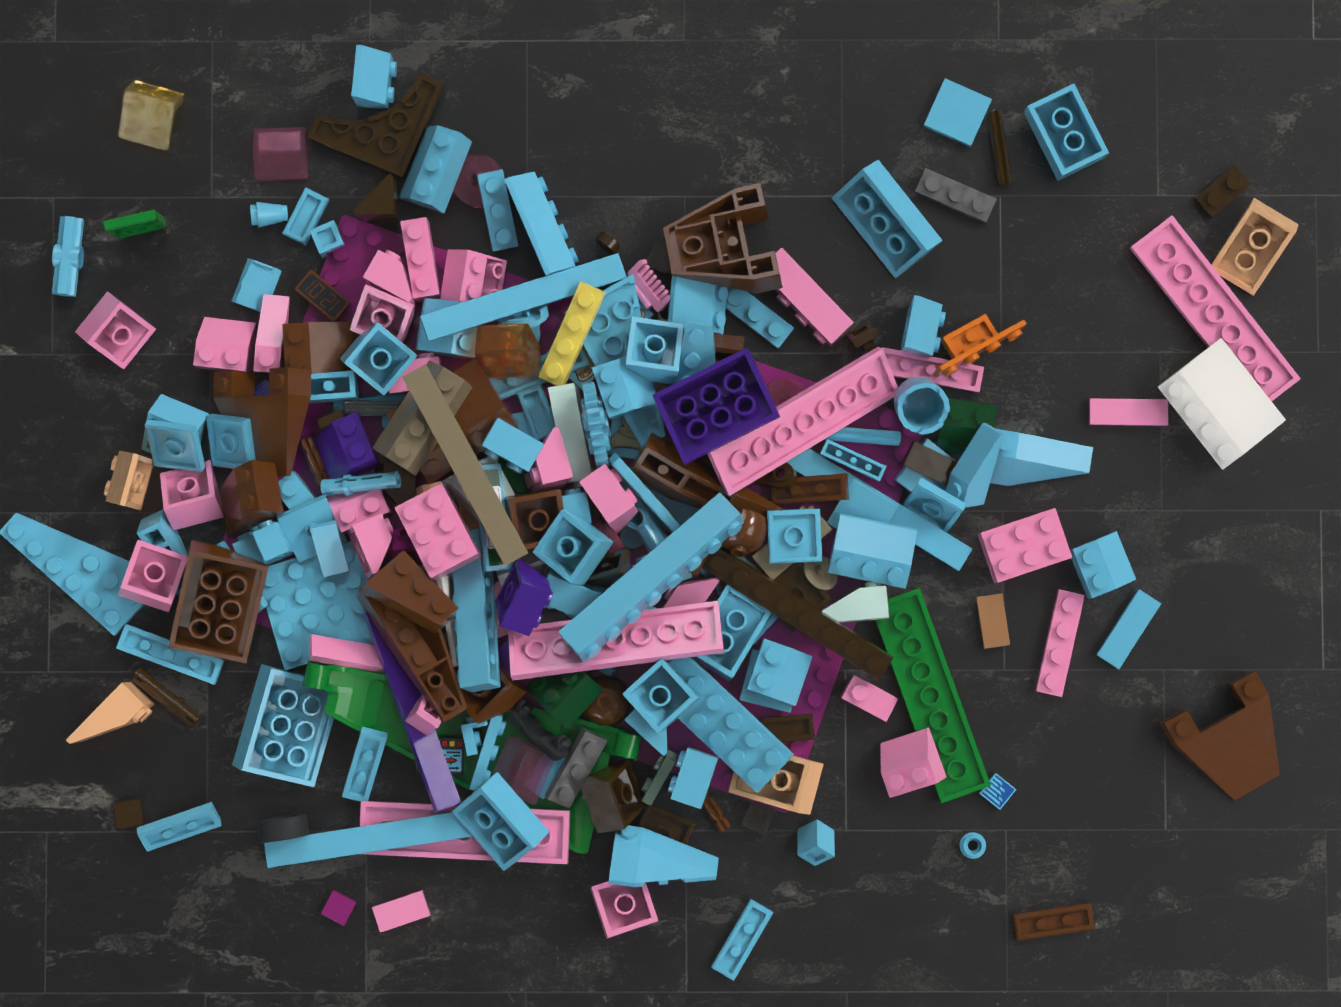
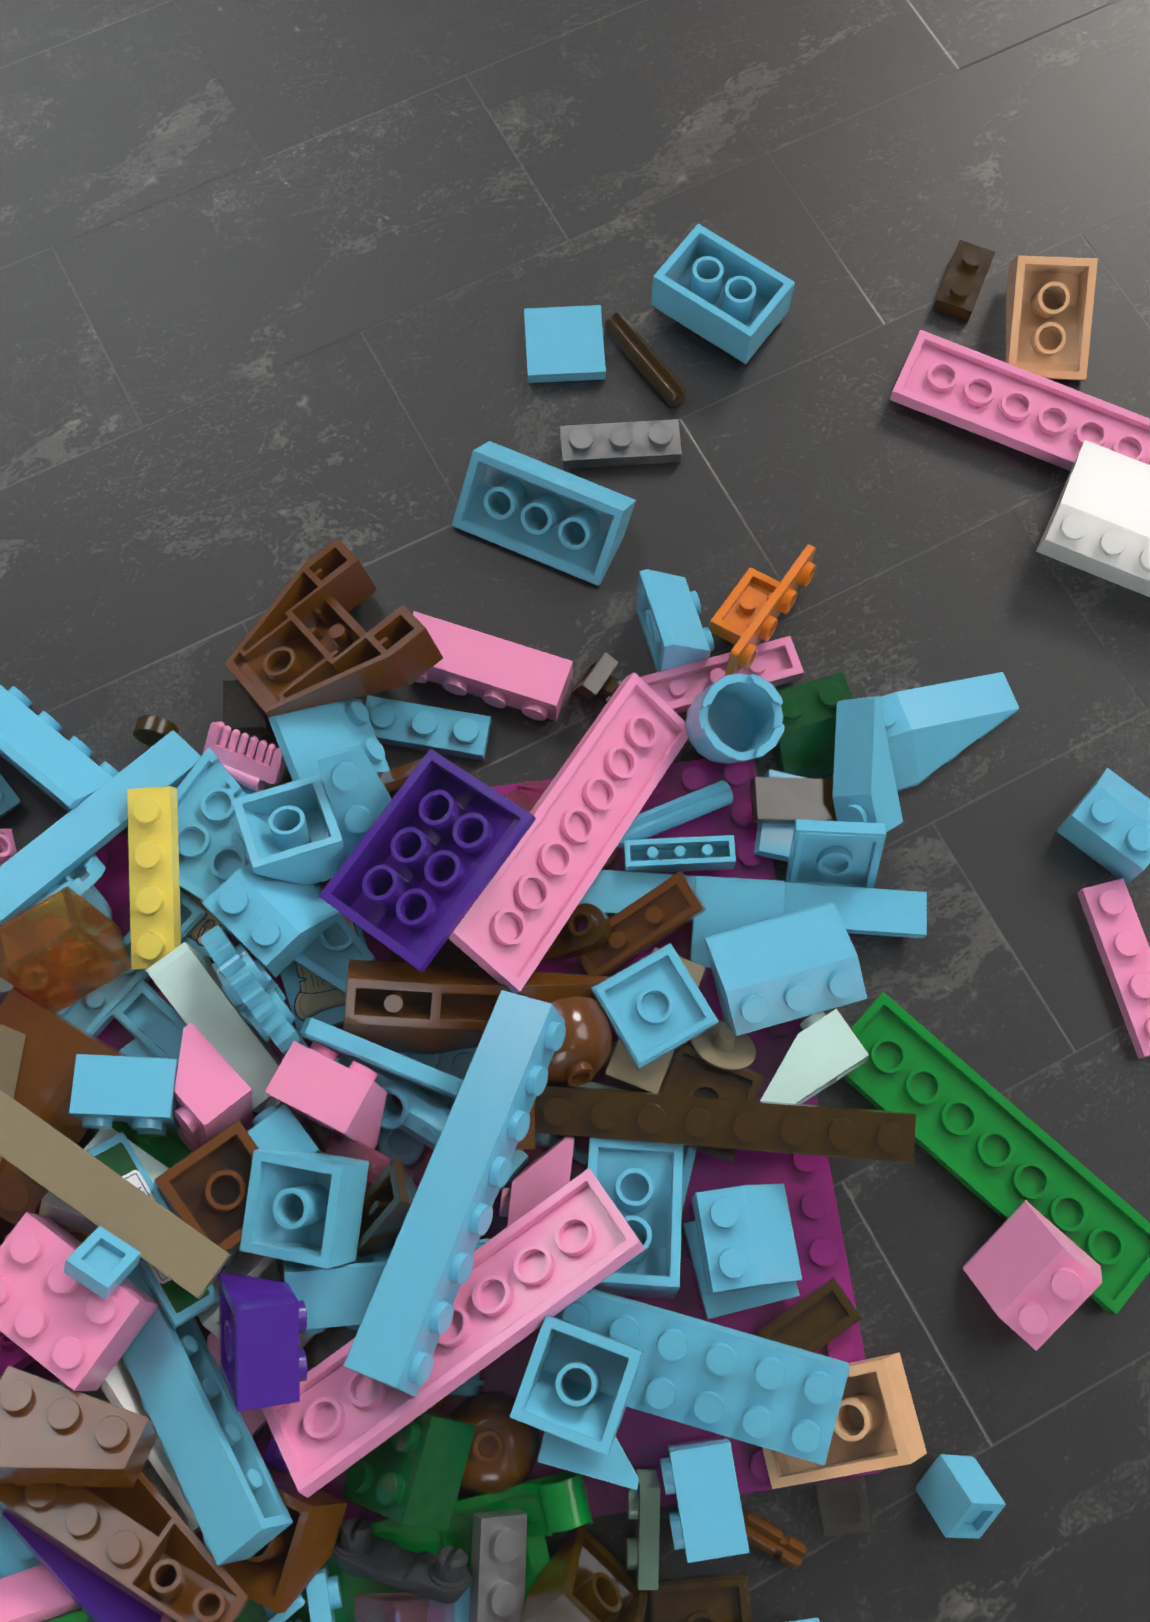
camera: 30 degrees left, 15 degrees down
(469, 527) = (102, 1262): none -> medium azure plate
(869, 697) = (903, 1204): bright pink slope -> none
(992, 621) = (1016, 986): medium nougat tile -> none
(1024, 545) = (996, 850): bright pink brick -> none
(1128, 412) = (1020, 602): bright pink tile -> none

